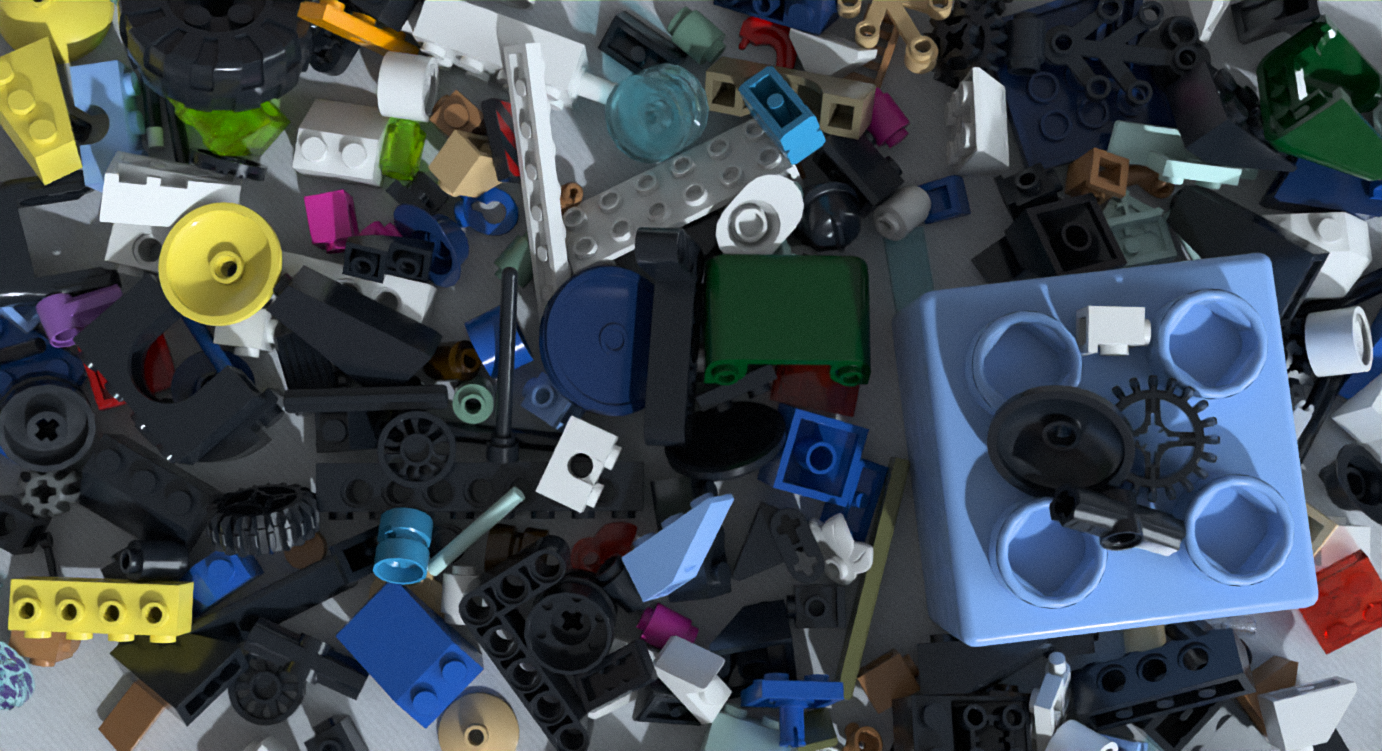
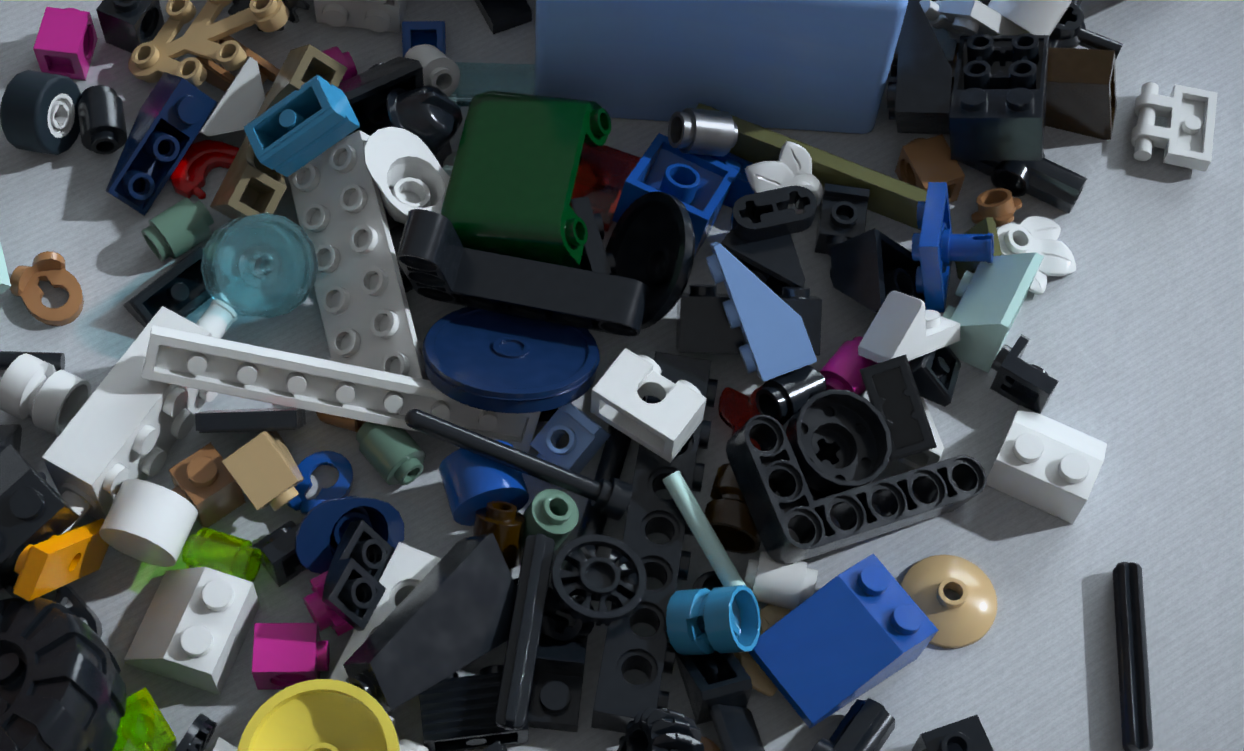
camera: 85 degrees left, 25 degrees down
(868, 469) = (702, 132): none -> flat silver brick

